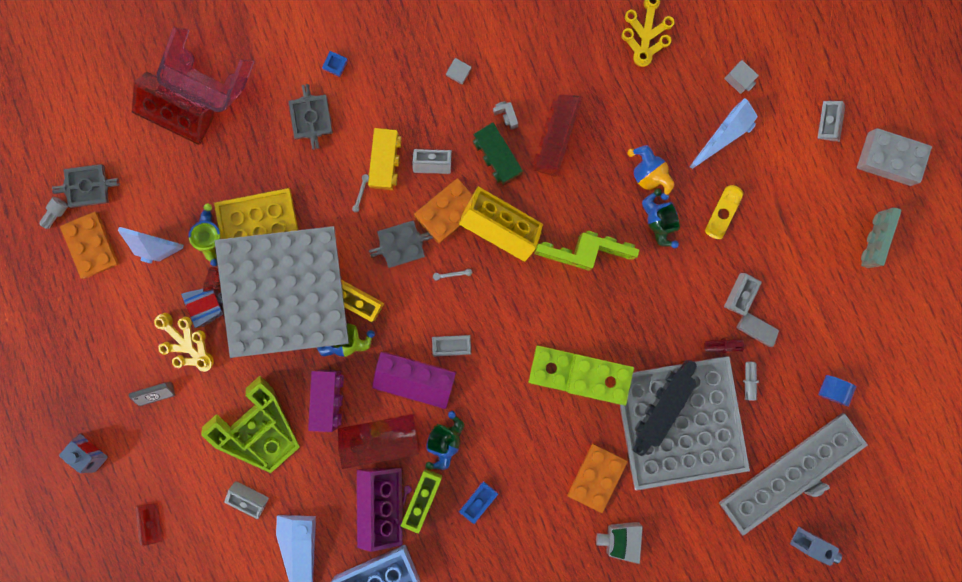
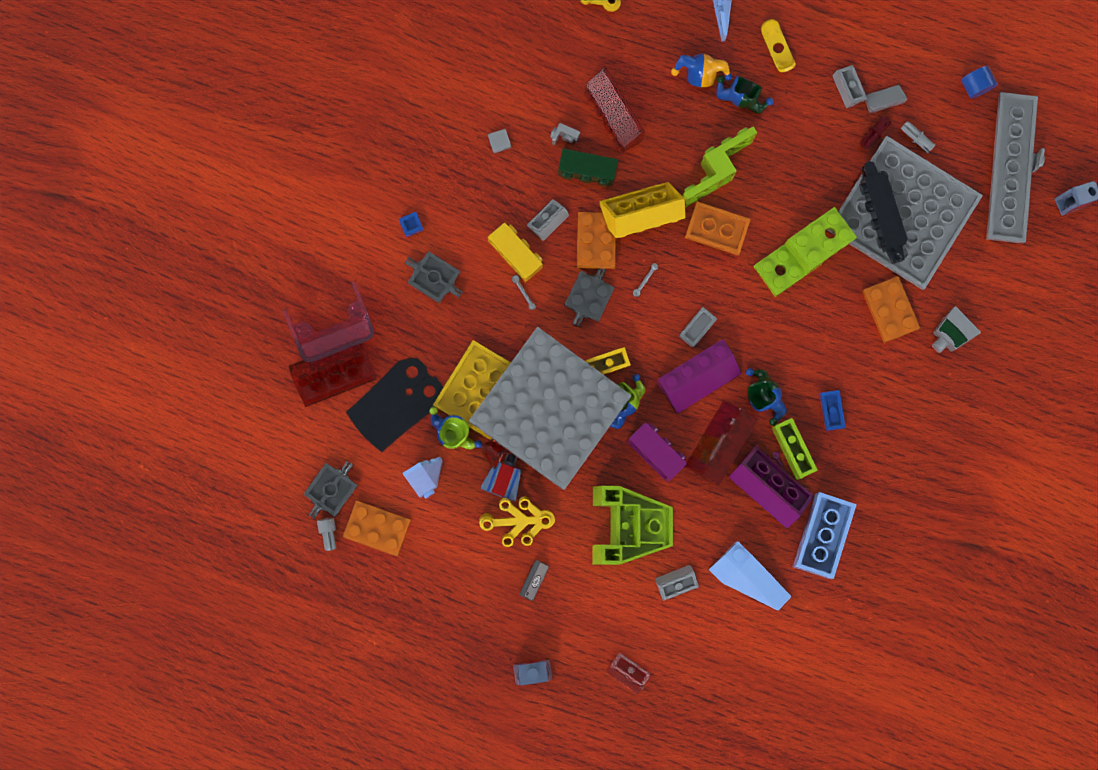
camera: 55 degrees left, 5 degrees down
(184, 172) = (387, 409): none -> black piece
(540, 293) = (717, 228): none -> orange plate

